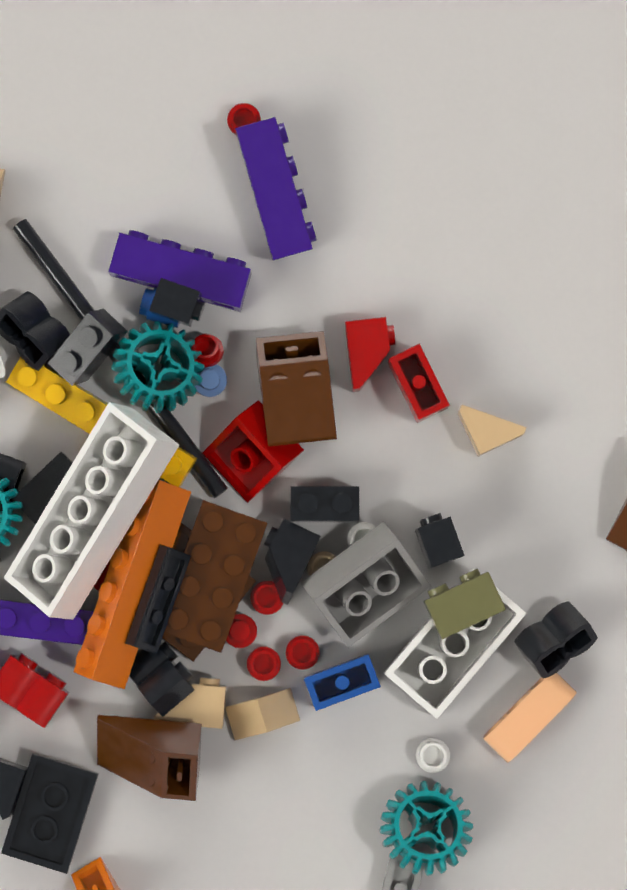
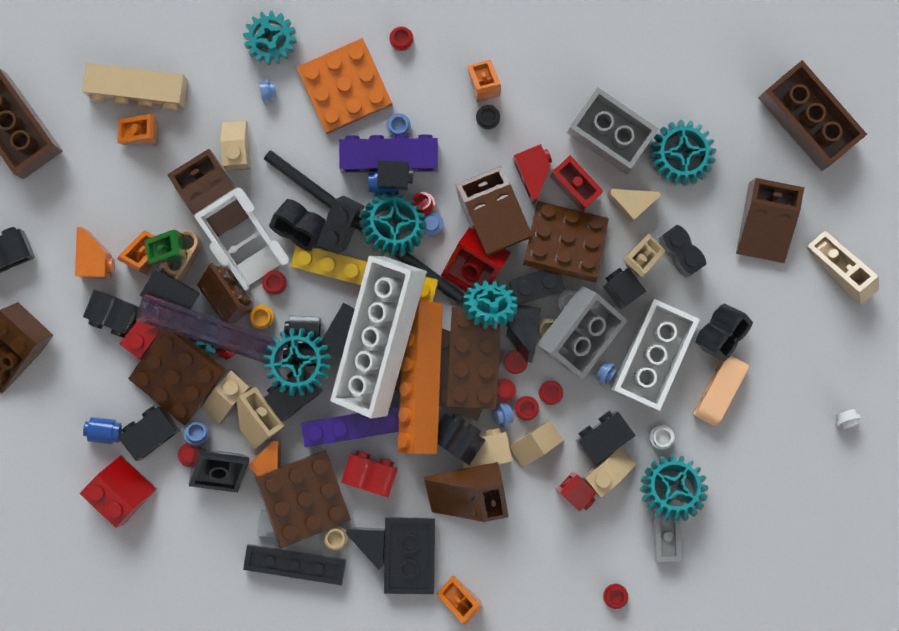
camera: 15 degrees left, 0 degrees up
(44, 138) = (267, 91): none -> medium blue plate
(81, 69) = (261, 39): none -> teal gear
(149, 161) = (344, 86): none -> orange plate
(158, 599) = (442, 384): black tile -> none
(205, 235) = (398, 125): none -> medium blue plate
(229, 663) = (503, 415): none -> medium blue plate
(253, 512) = (490, 304): none -> teal gear
(274, 188) = (436, 77): dark purple brick -> none
(296, 795) = (577, 492): none -> red slope
(328, 259) = (488, 117): none -> black plate
(337, 208) = (484, 80): none -> orange slope
(342, 682) = (585, 404): blue brick -> none
(348, 780) = (609, 472): none -> tan slope
(356, 732) = (605, 436): none -> black brick
(381, 457) = (566, 241): none -> reddish brown plate
(383, 648) = (606, 373): none -> medium blue plate
(464, 603) = (656, 325): olive brick -> none
(477, 507) = (644, 255): none -> tan slope
(487, 326) = (612, 130): none -> light grey brick
(529, 505) = (685, 256): none -> black brick
(557, 380) = (692, 152): none -> teal gear

